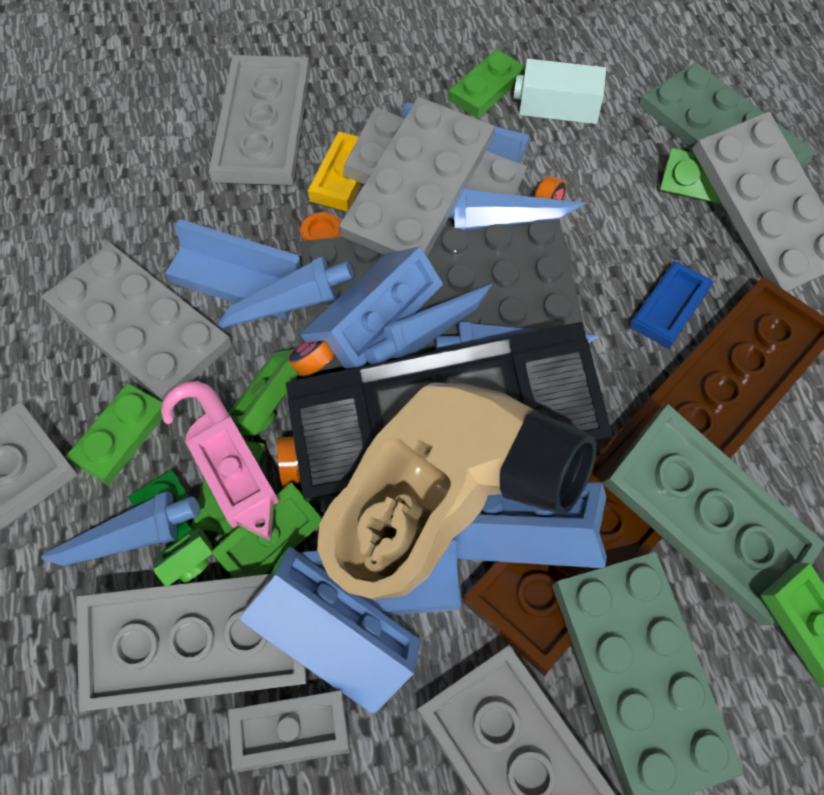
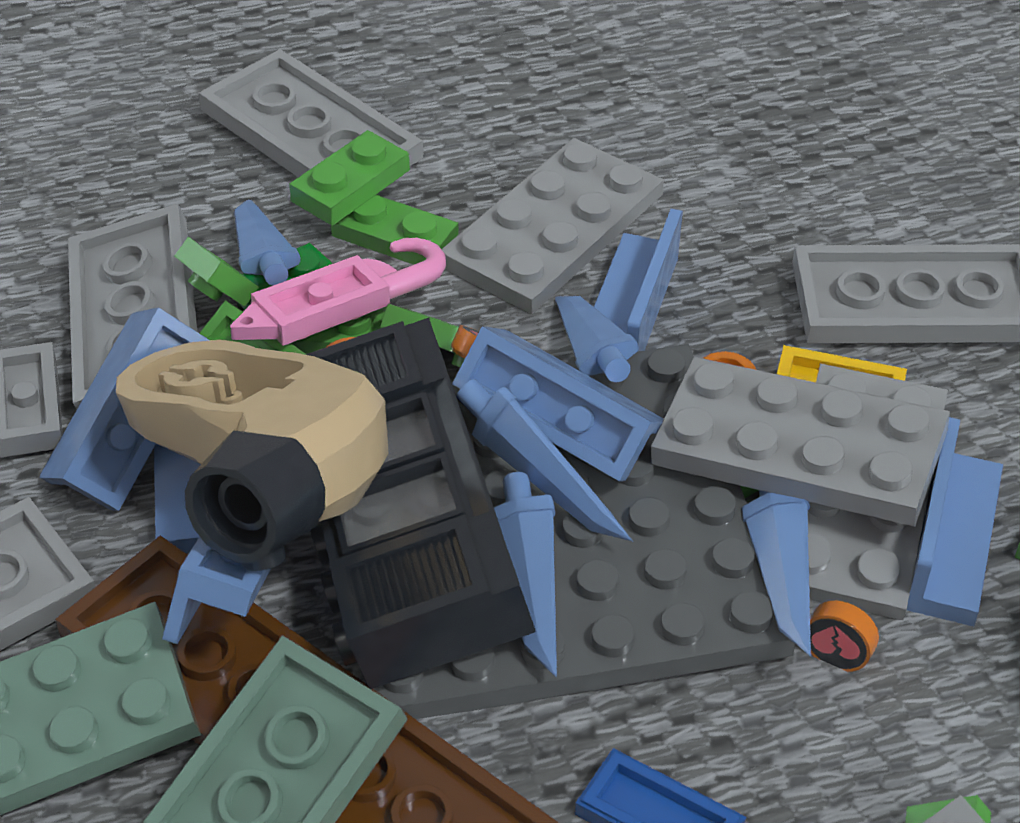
camera: 85 degrees right, 15 degrees down
(65, 454) = (349, 177): none -> bright green plate

